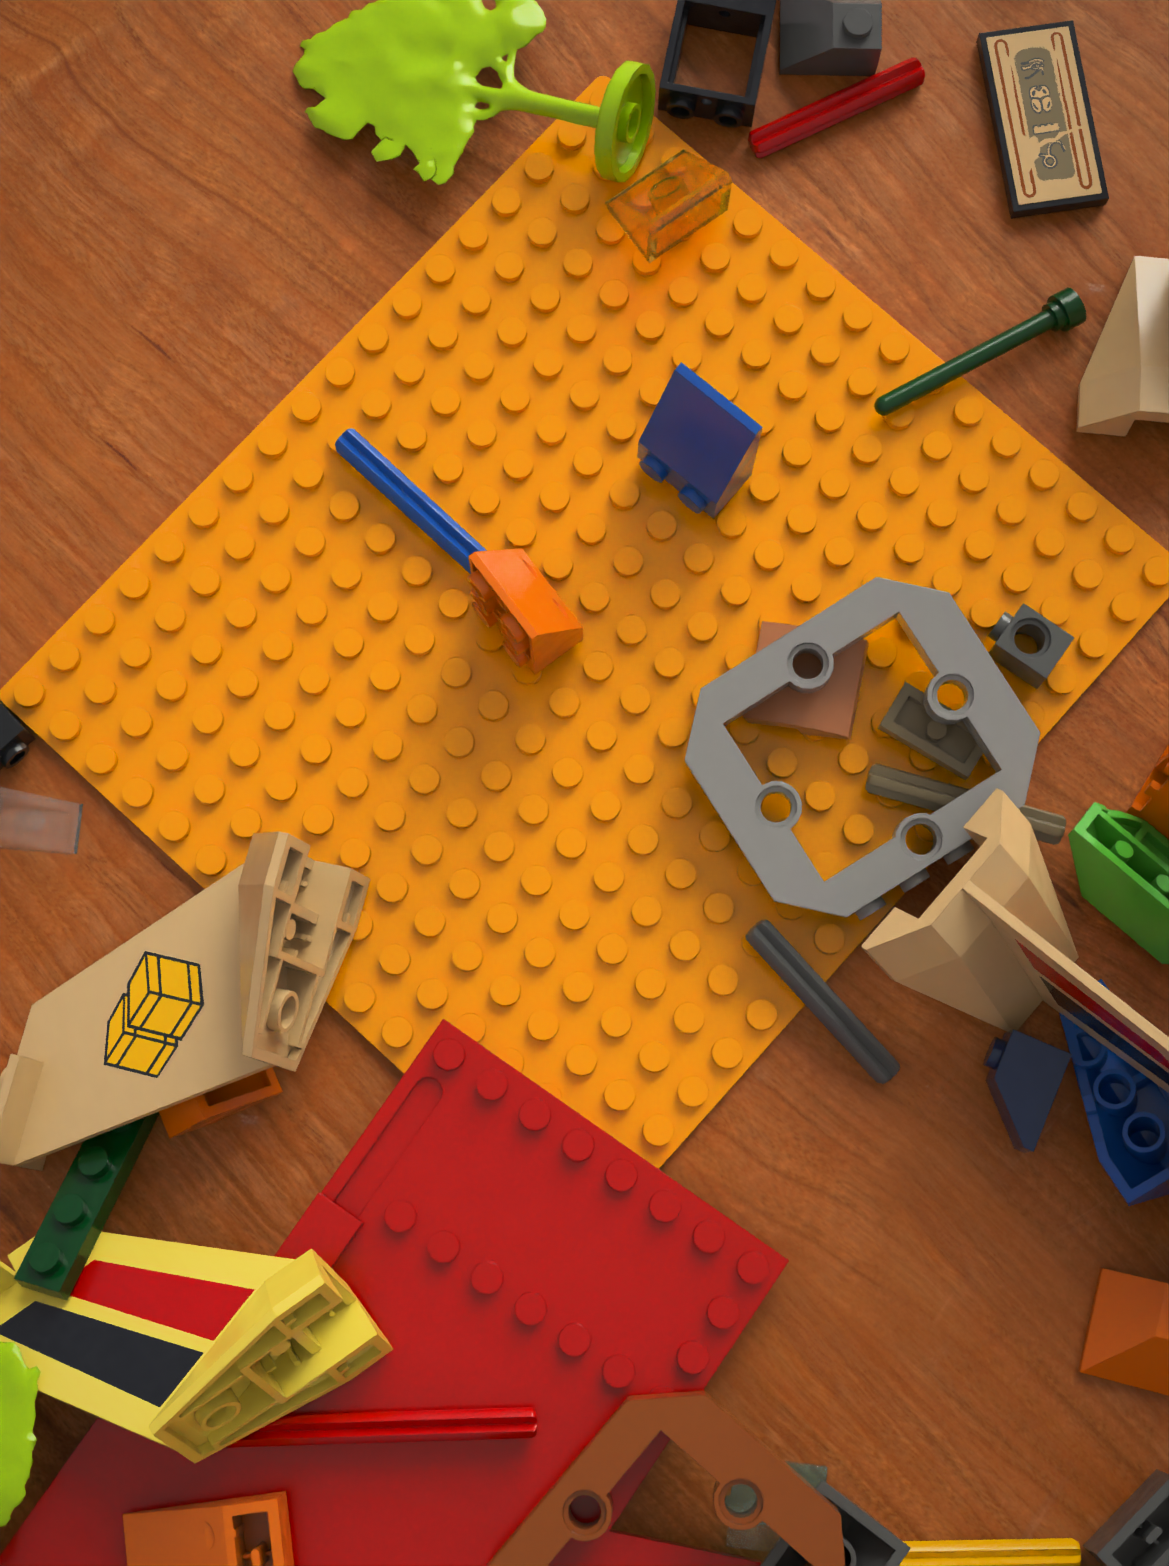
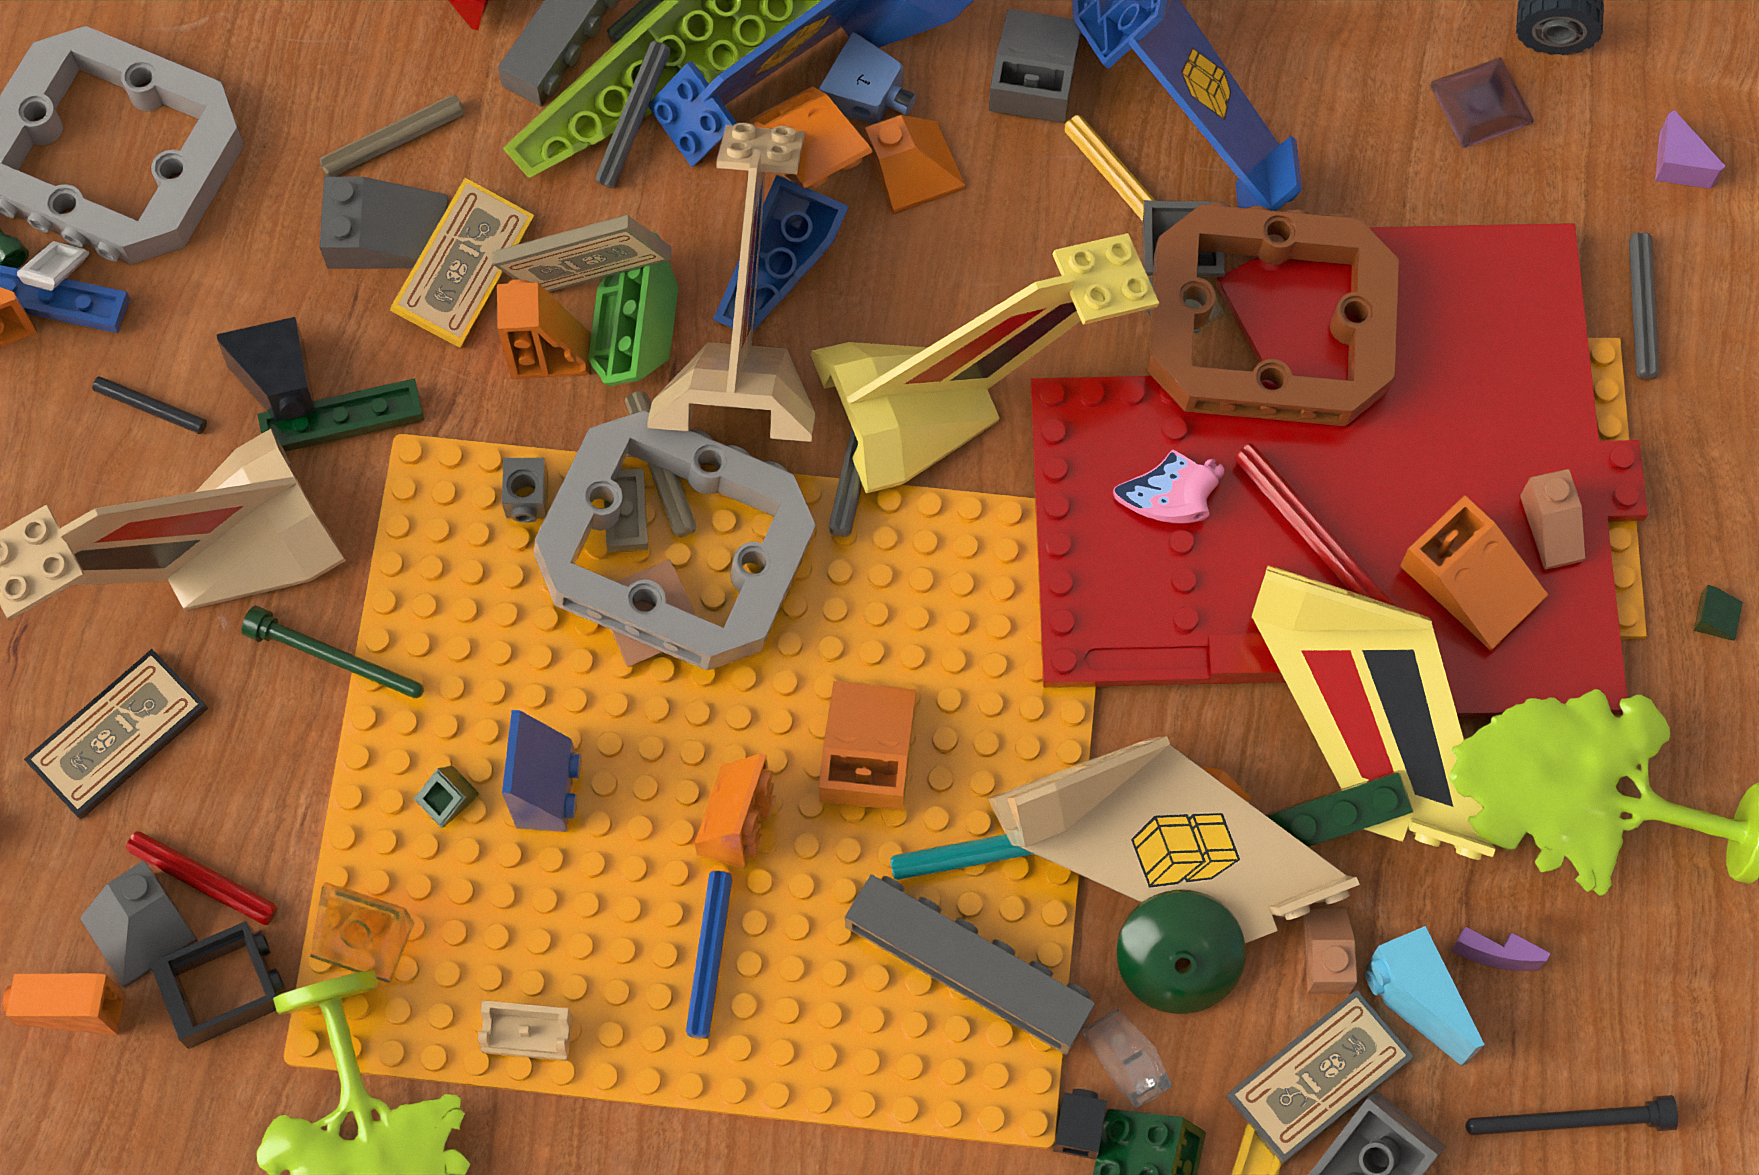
camera: 125 degrees left, 10 degrees down
(70, 944) = (1178, 927): none -> dark green dish
(212, 732) = (969, 963): none -> dark grey brick
(338, 790) = (954, 856): none -> teal axle
(465, 288) = (525, 1030): none -> tan hinge
(506, 792) = (867, 746): none -> orange slope
(546, 1309) = (1173, 490): none -> bright pink arm
(754, 369) = (445, 795): none -> slope
(848, 1128) = (928, 401): none -> light yellow piece
(1024, 1084) = (816, 317): dark blue slope -> none

